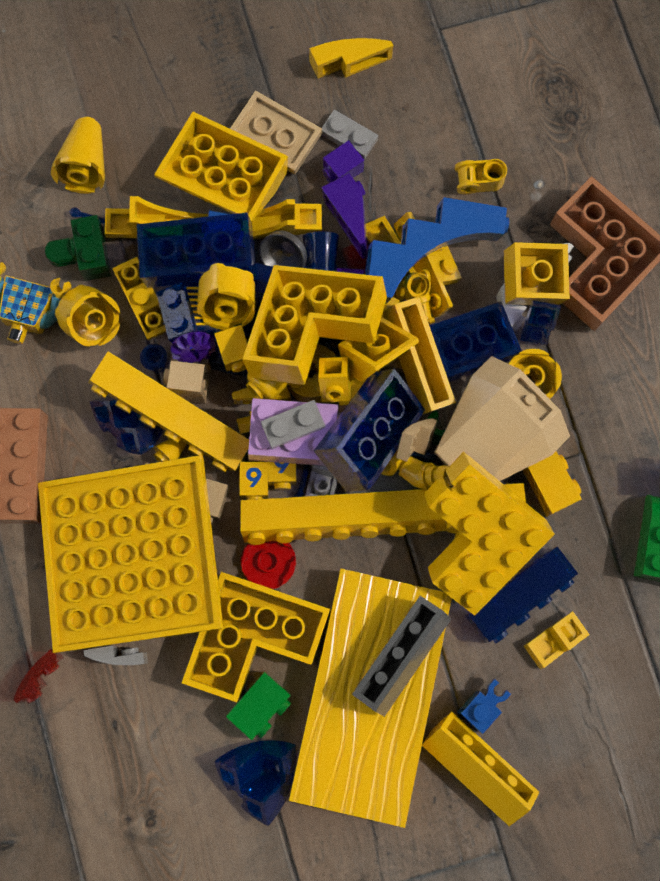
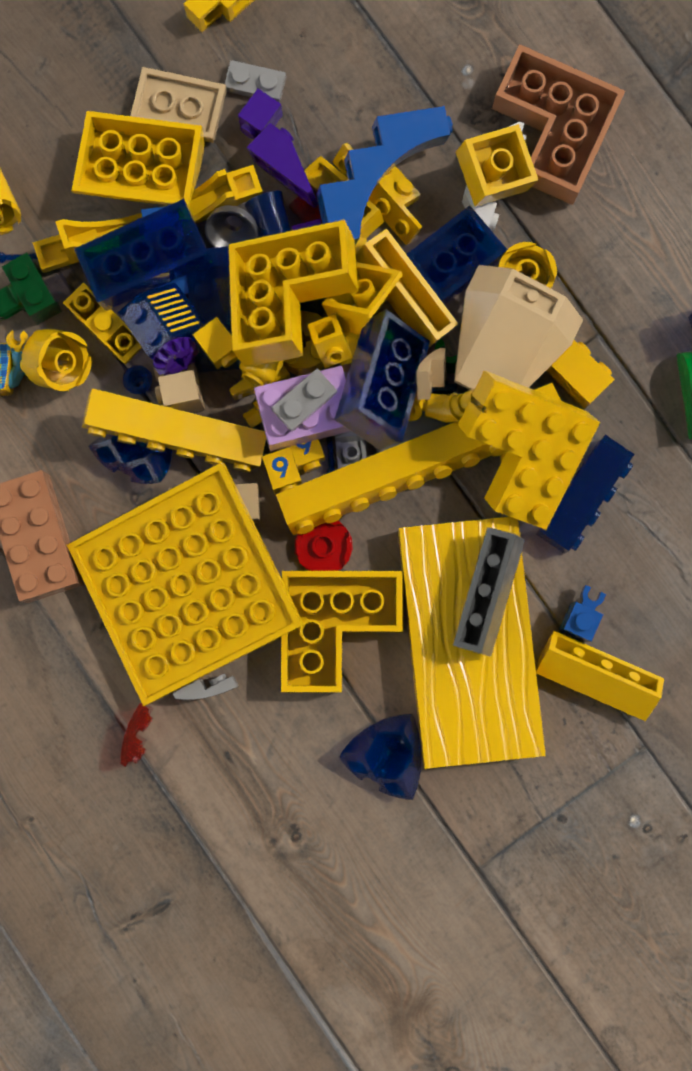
camera: 15 degrees left, 5 degrees up
(168, 450) = (185, 469): yellow cone -> none
(226, 296) = (191, 293): yellow brick -> none
(259, 706) = (364, 689): green piece -> none
(424, 295) = (389, 223): yellow connector -> none
(478, 177) = (399, 83): yellow piece -> none
(540, 322) = (515, 214): clear blue slope -> none
(556, 640) = (633, 527): yellow slope -> none

